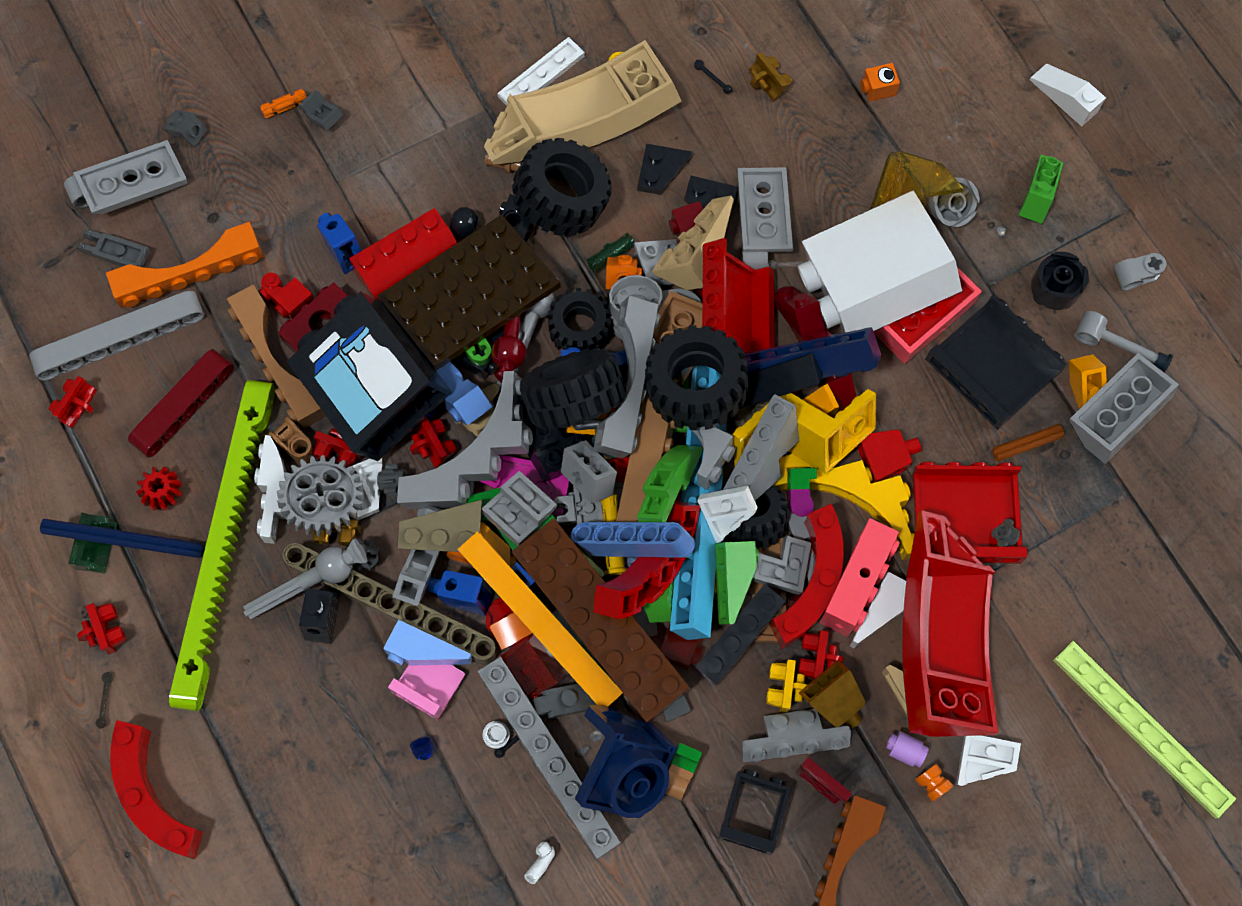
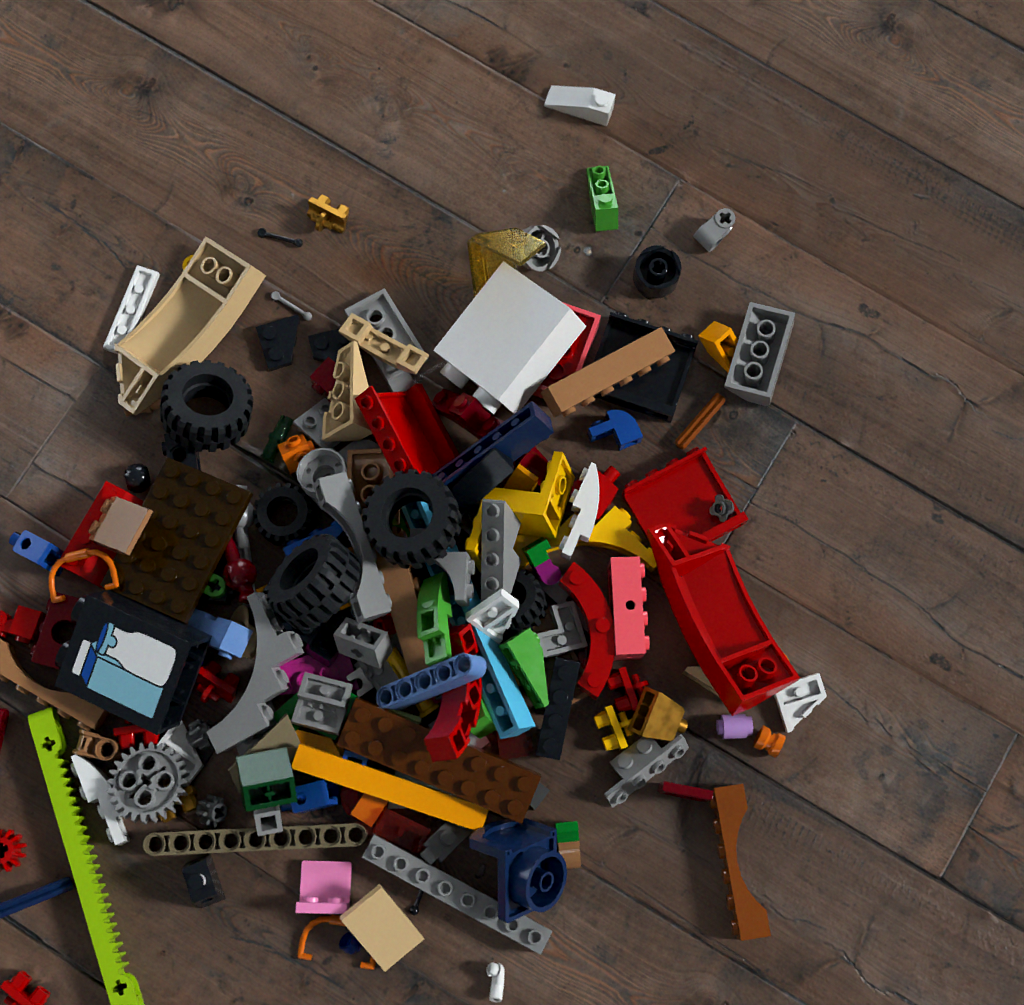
camera: 30 degrees left, 5 degrees up
(331, 565) = (191, 838): light grey piece -> none
(368, 258) = (75, 556): none -> orange piece
(420, 648) = (301, 864): light blue slope -> none
(423, 249) = (119, 525): none -> medium nougat slope
(425, 723) = (333, 920): none -> orange piece
(429, 545) = (266, 779): none -> slope
(460, 748) = (381, 927): none -> tan tile
(496, 734) = (404, 897): white plate -> none
(680, 127) = (277, 297): none -> light grey hinge
(745, 839) = (648, 870): black window -> none
(755, 216) = (382, 346): none -> tan slope
(871, 459) = (586, 504): none -> white slope
(880, 82) = (423, 172): orange brick -> none
(885, 608) = (659, 621): white slope -> none
(945, 404) = (620, 425): none -> blue brick
(960, 346) = (607, 372): none -> medium nougat brick
(1093, 328) = (703, 298): light grey piece -> none
(1145, 730) = (905, 607): yellowish green tile -> none

